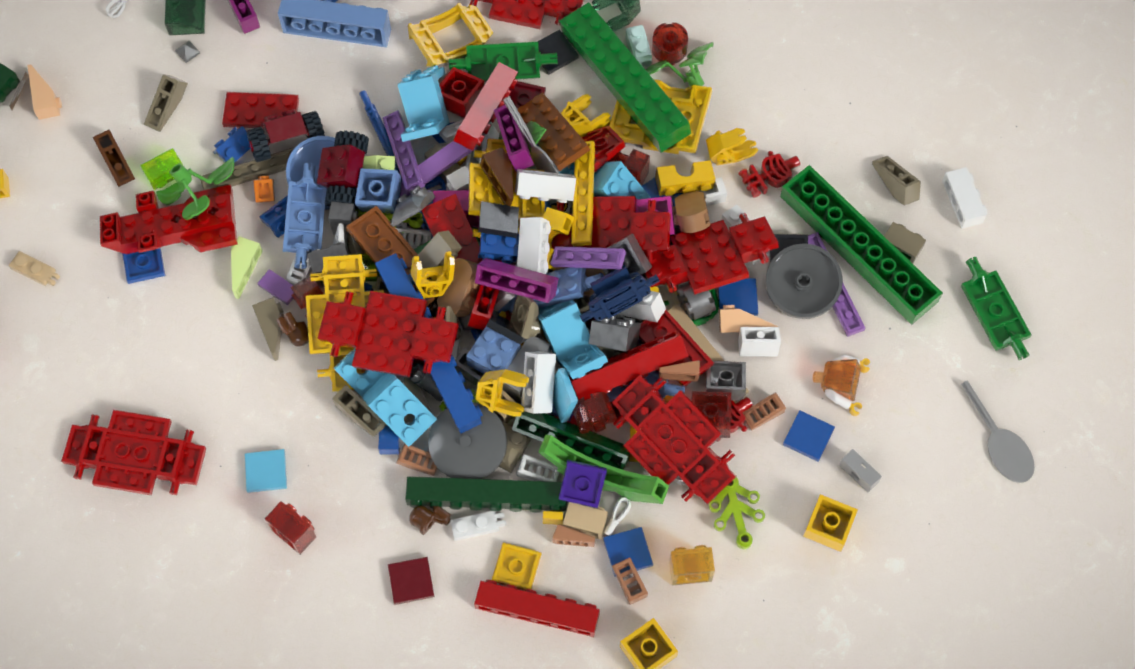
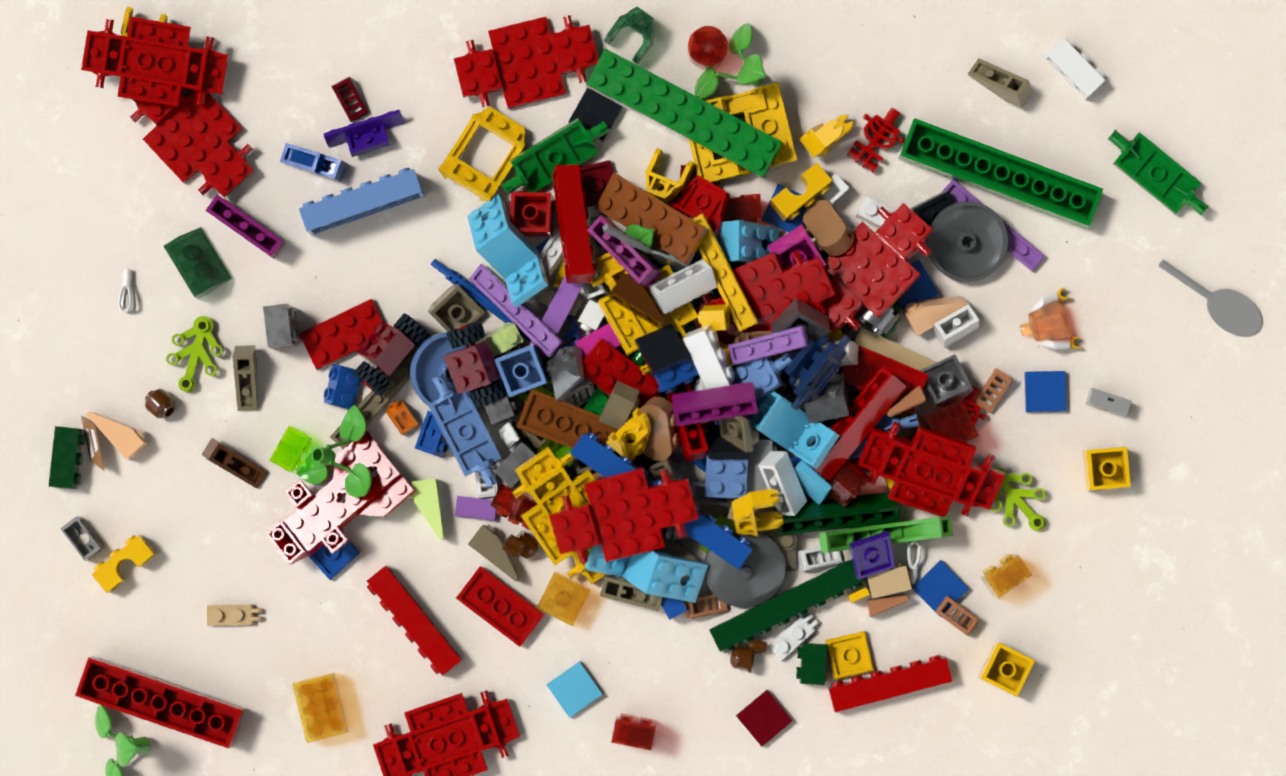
camera: 30 degrees left, 20 degrees up
(50, 371) = (320, 707): none -> clear yellow brick
(88, 88) = (160, 403): none -> reddish brown head
(140, 66) = (196, 351): none -> lime plant
(171, 346) = (414, 621): none -> red brick
(187, 51) = (229, 308): slope -> none
(214, 75) = (280, 326): none -> flat silver brick
(247, 371) = (500, 606): none -> red plate
(302, 390) = (563, 598): none -> clear yellow brick
(359, 123) = (455, 309): none -> dark tan slope
(479, 555) = (812, 663): none -> dark green brick
(638, 45) = (677, 67): light aqua brick -> none
(907, 242) = (1039, 148): dark tan brick -> none

